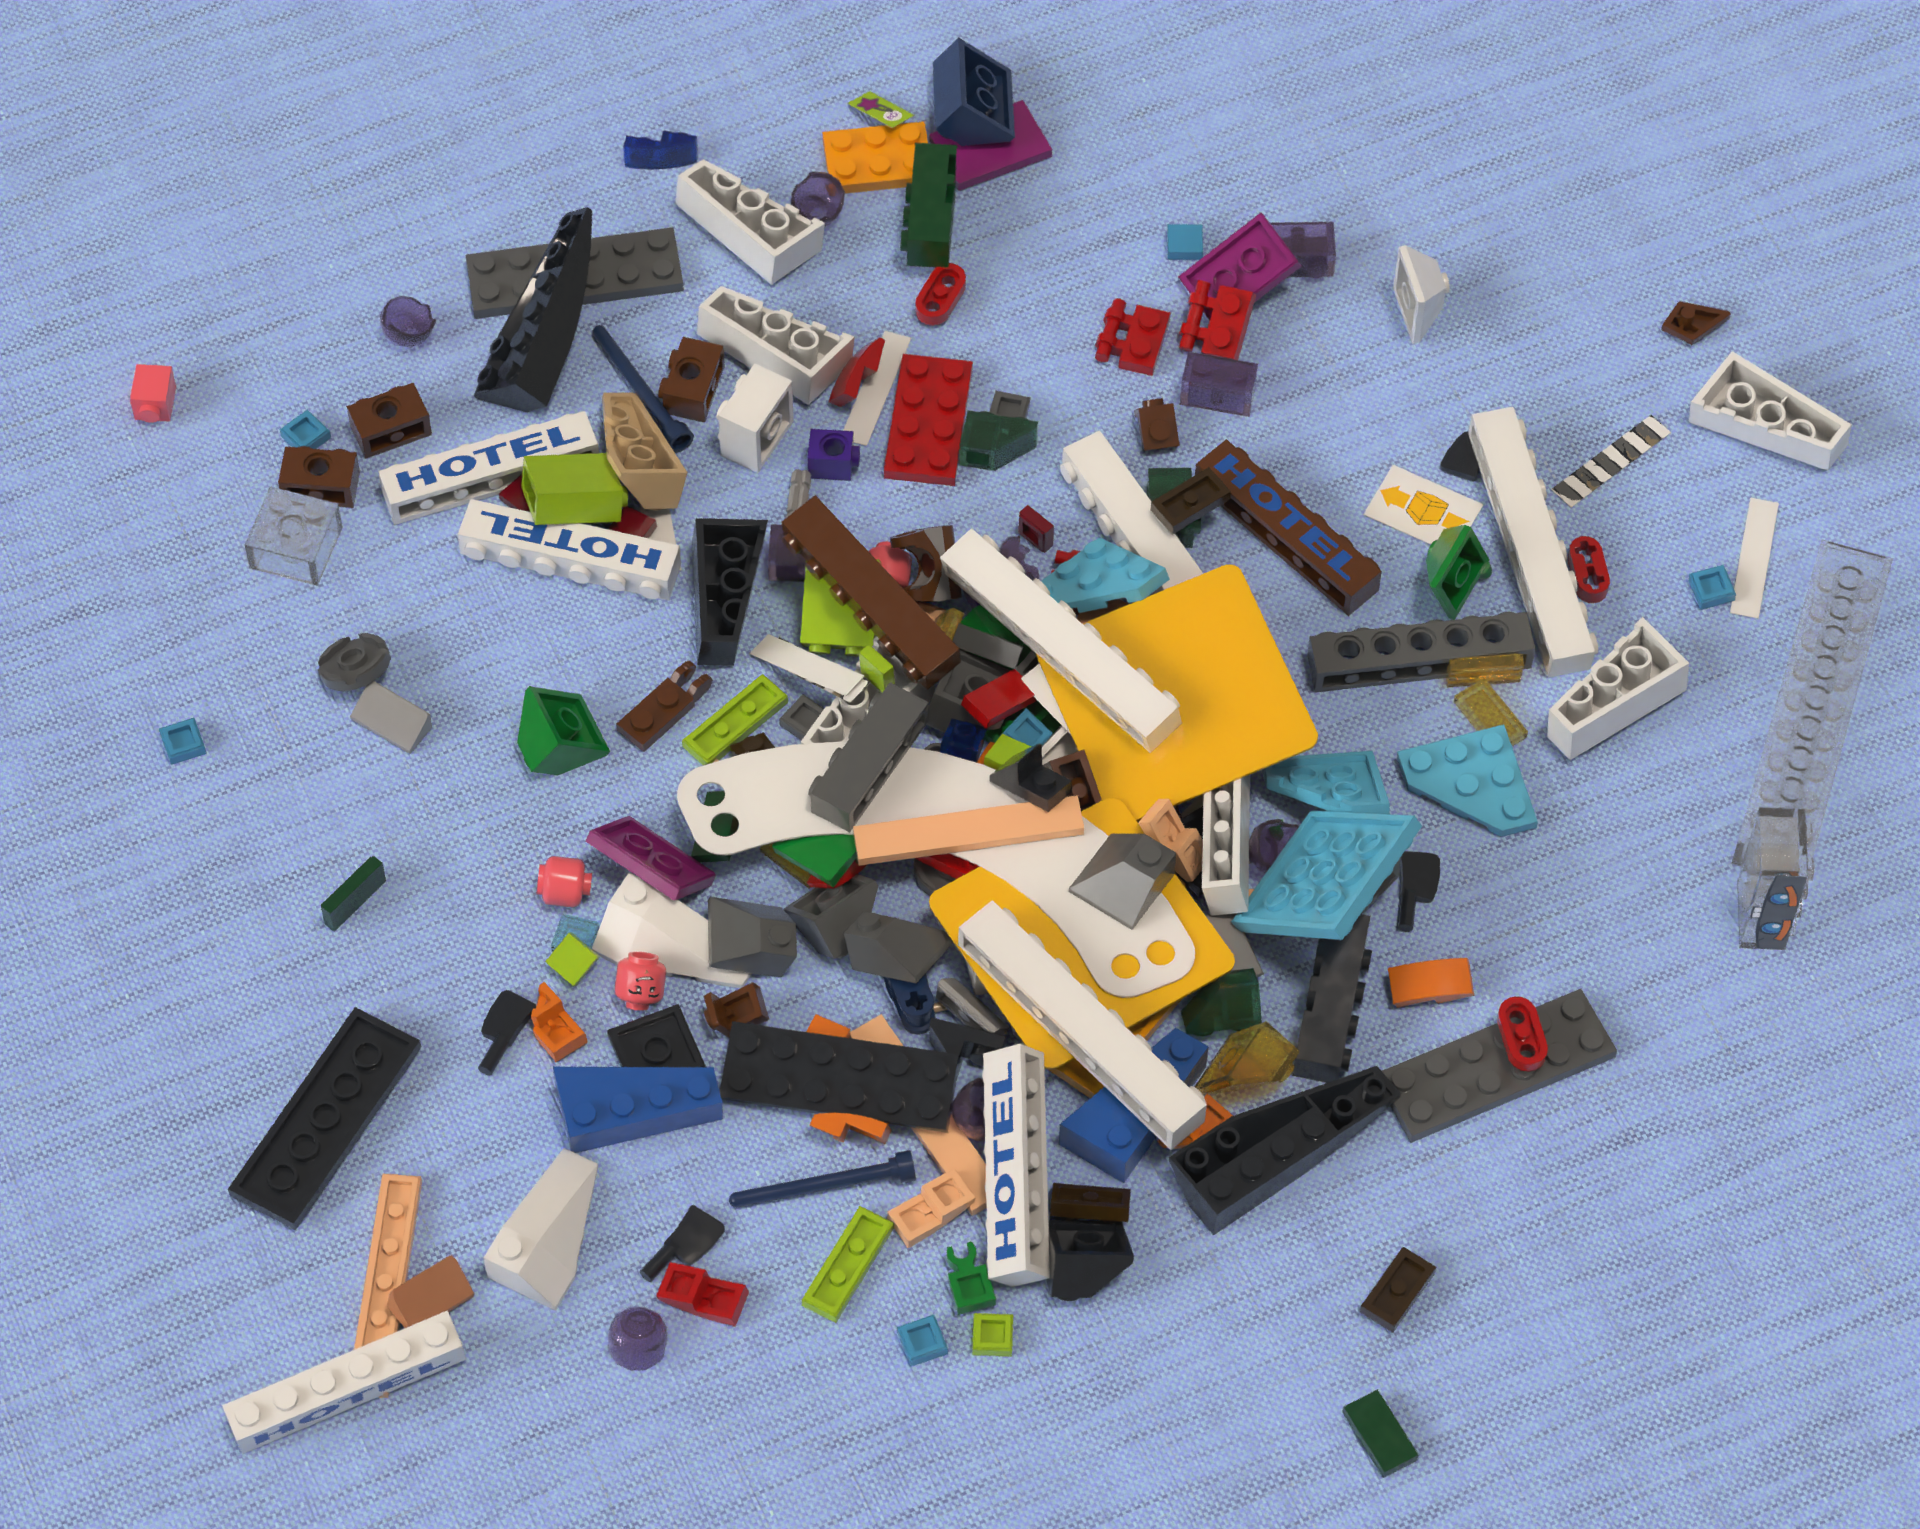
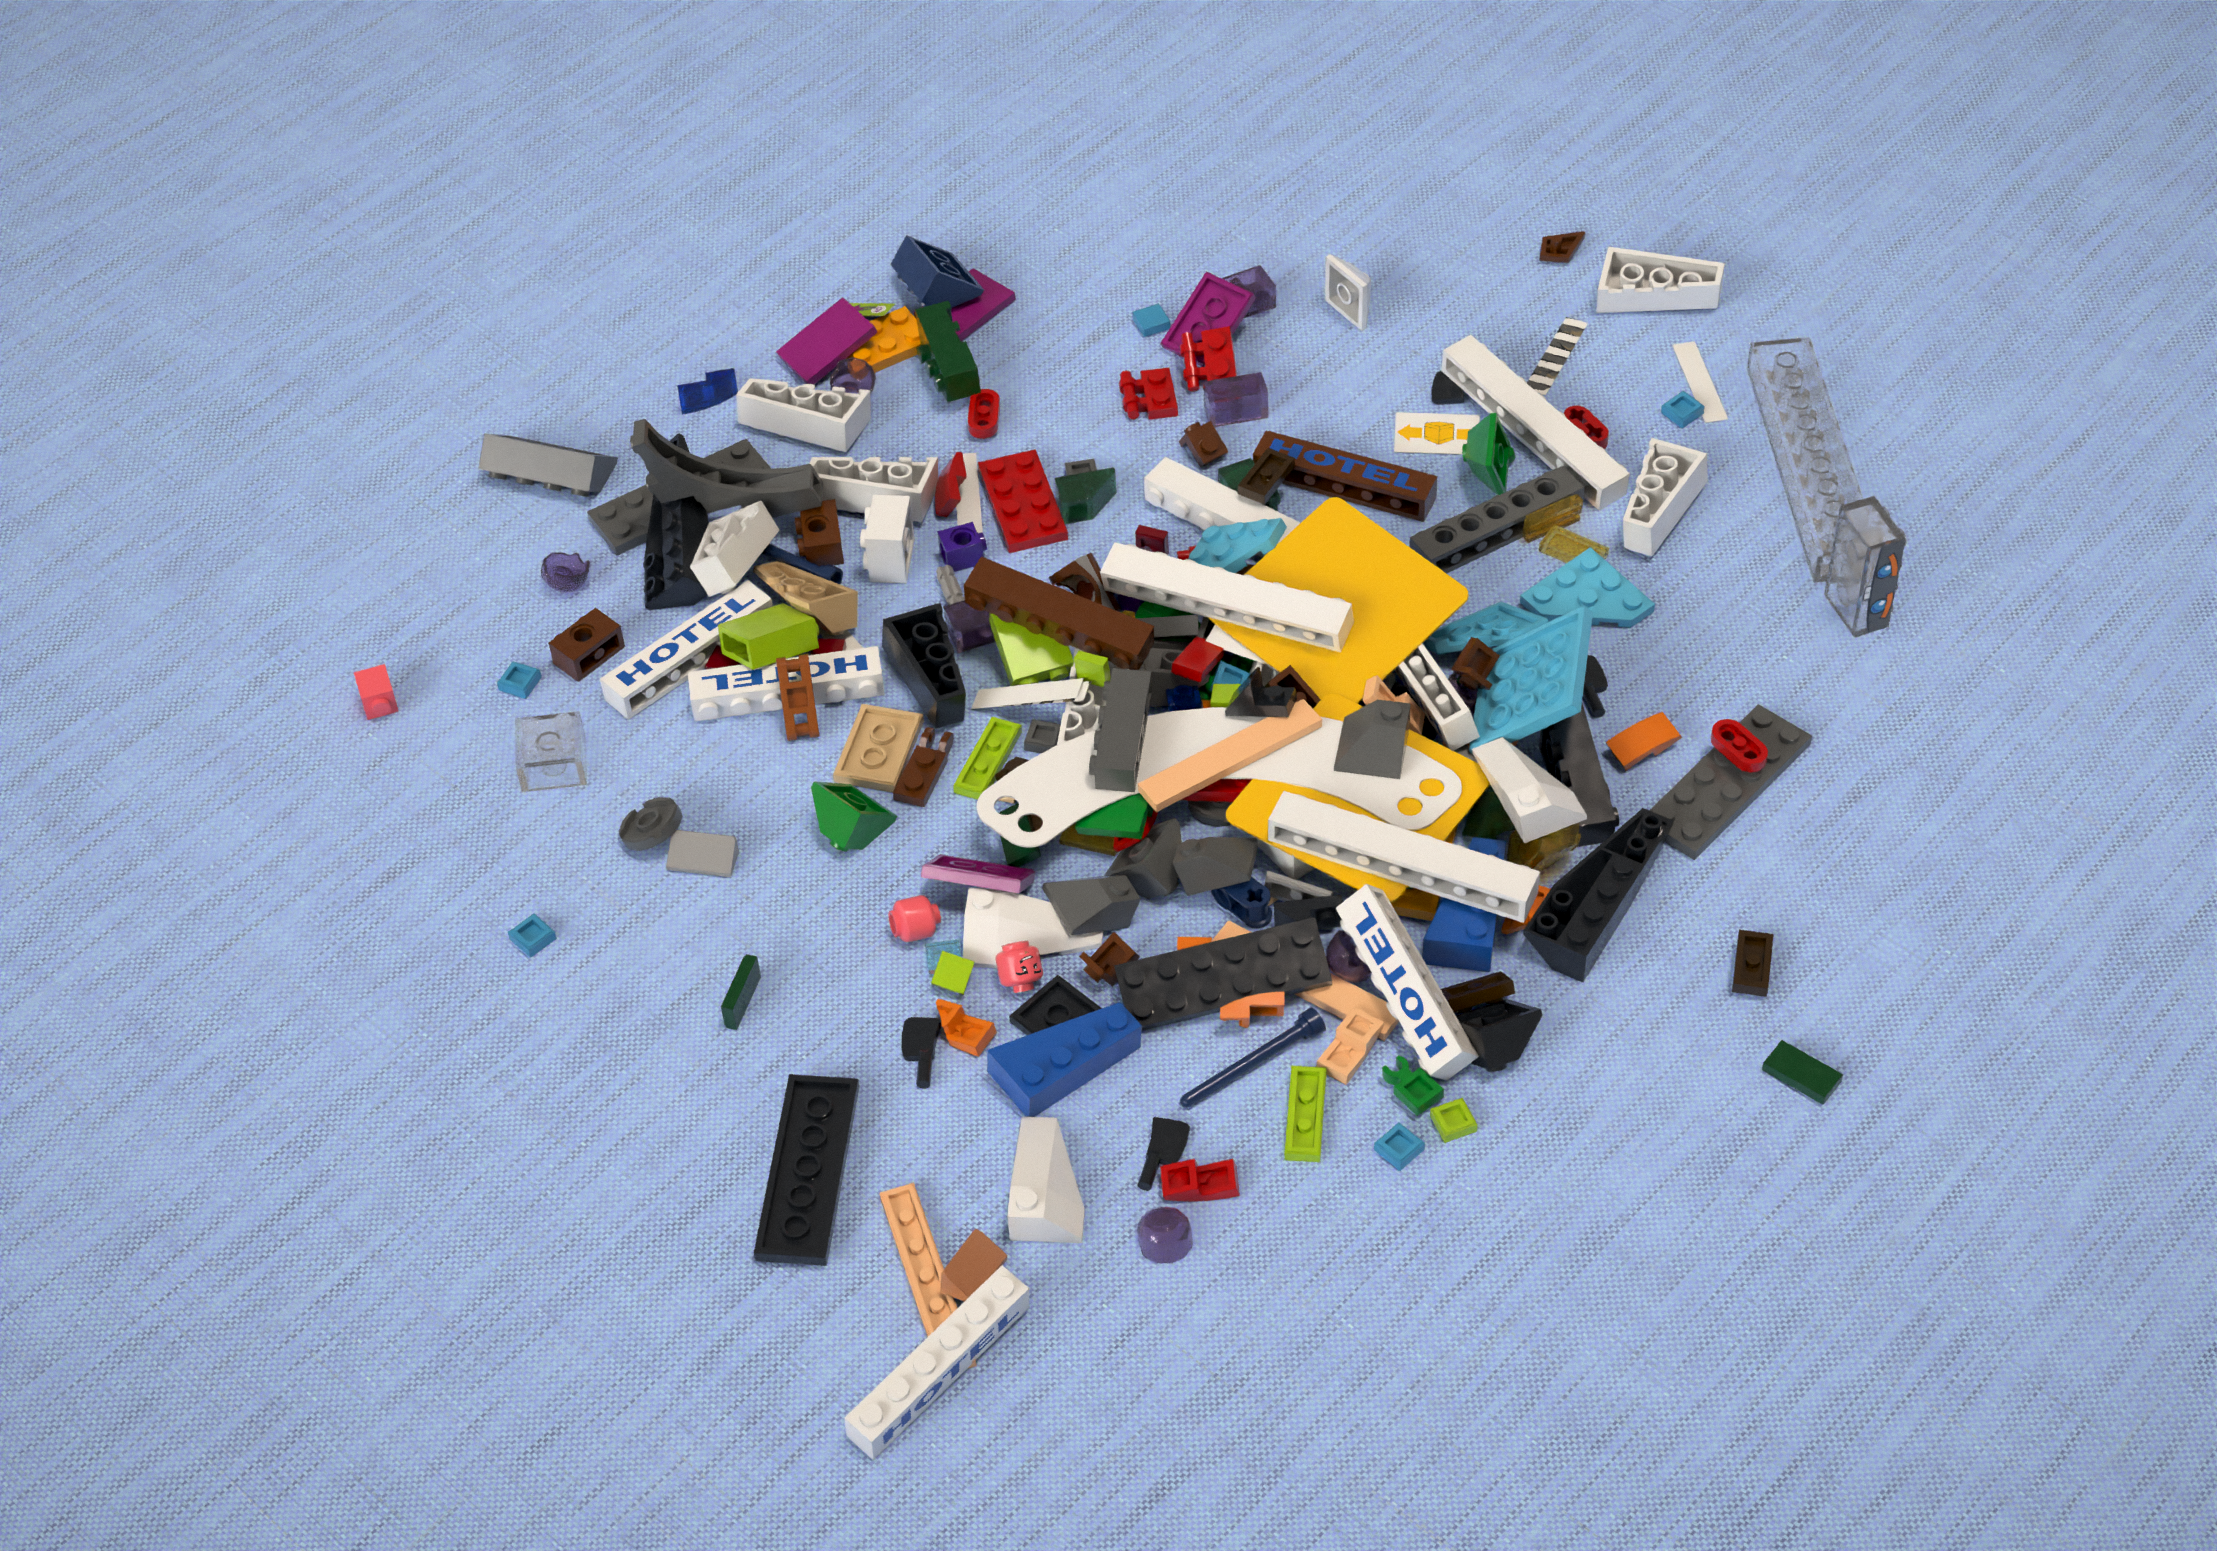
camera: 20 degrees left, 10 degrees down
(336, 483) = (549, 697): reddish brown brick -> none
(450, 177) = (545, 463): none -> slope
(567, 574) = (797, 697): none -> dark orange plate
(583, 366) = (732, 547): none -> white wedge
(630, 662) = (878, 747): none -> tan tile
(643, 310) = (719, 486): none -> dark grey arch
(814, 138) = (826, 341): none -> magenta tile
(1252, 1002) = (1528, 793): none -> white wedge
(1286, 825) = (1475, 664): none -> reddish brown bracket

